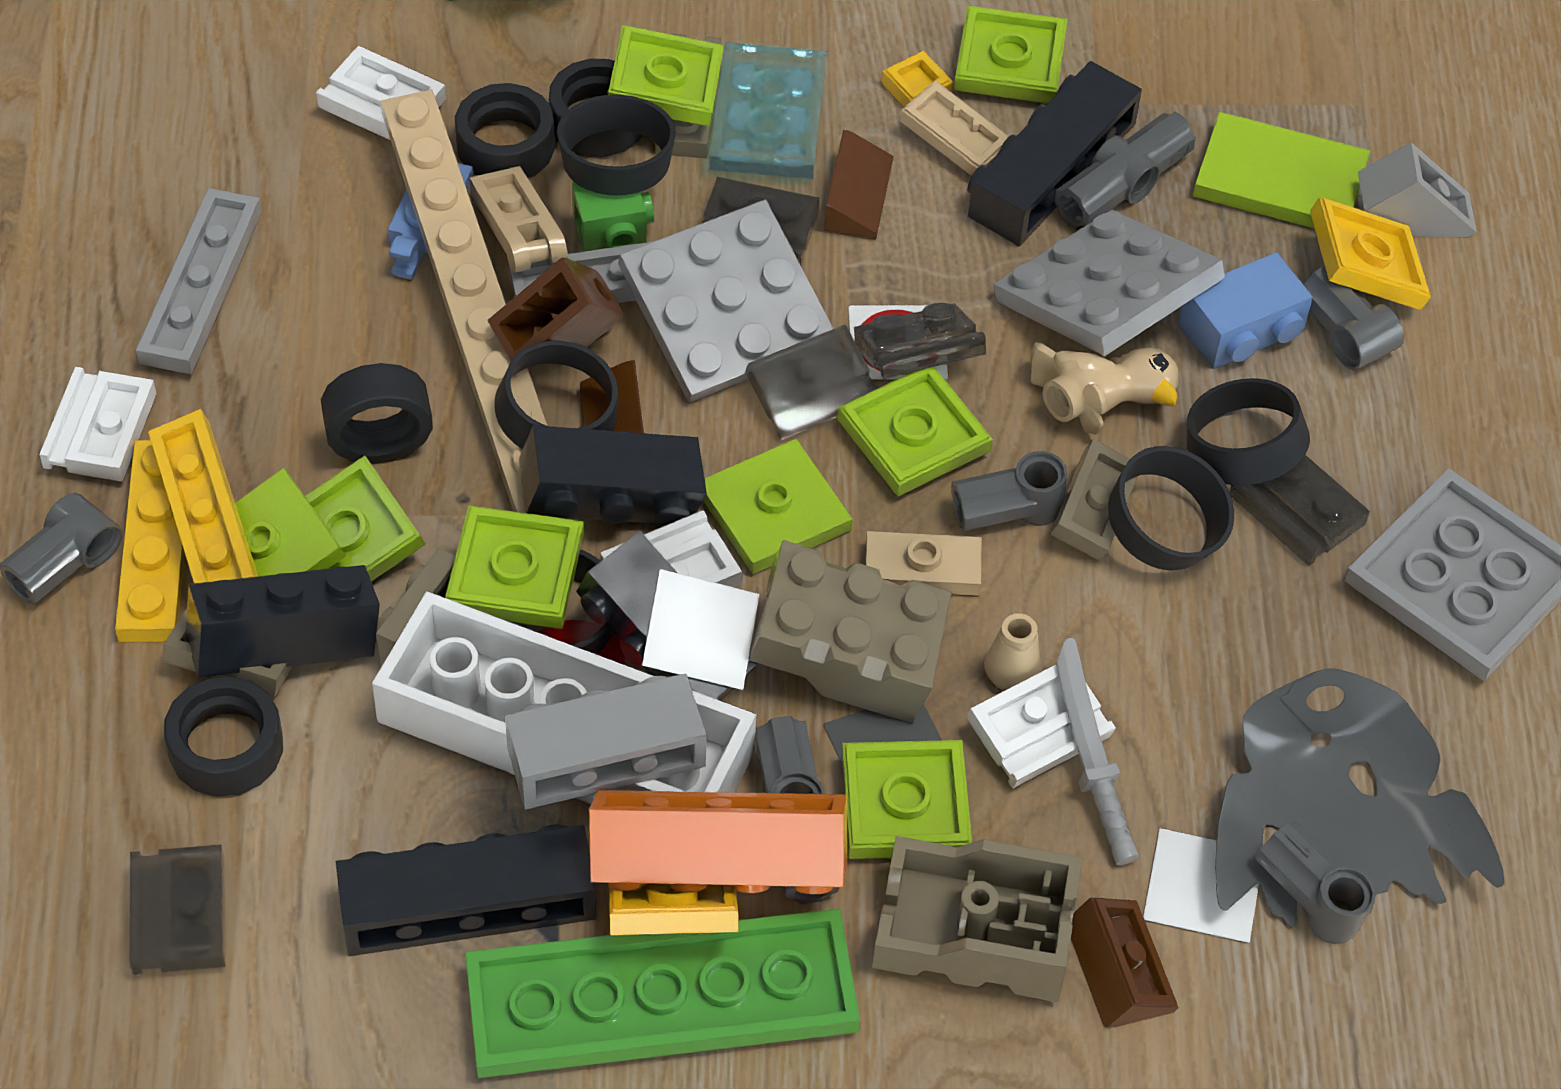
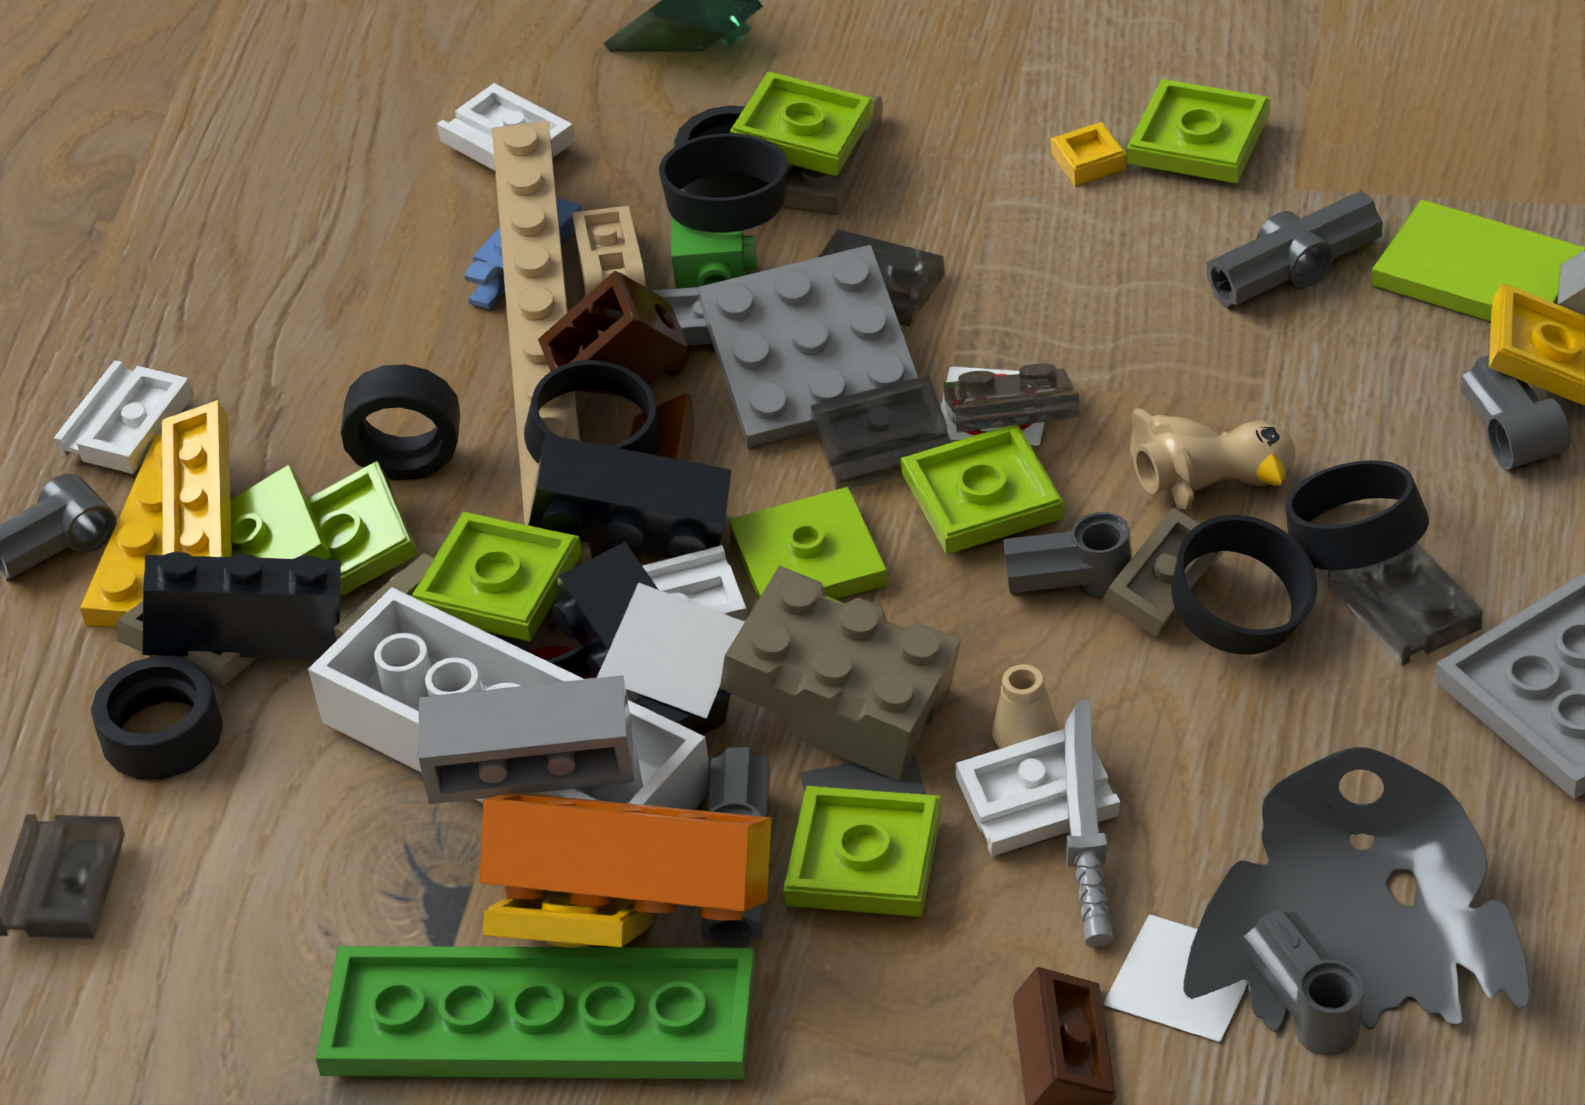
camera: 20 degrees right, 10 degrees down
(199, 281) = (266, 292): light grey plate -> none
(465, 889) = (352, 888): black brick -> none
(503, 103) = (615, 148): black tyre -> none
(768, 110) = (912, 169): clear light blue plate -> none
(857, 187) = (989, 249): reddish brown slope -> none
(932, 559) = (983, 622): tan plate -> none
(953, 128) = (1115, 200): tan plate -> none
(979, 914) = (908, 970): dark tan piece -> none
(1055, 146) = (1166, 256): black brick -> none
(1108, 281) = (1237, 353): light grey plate -> none
(1247, 311) = (1392, 396): medium blue brick -> none

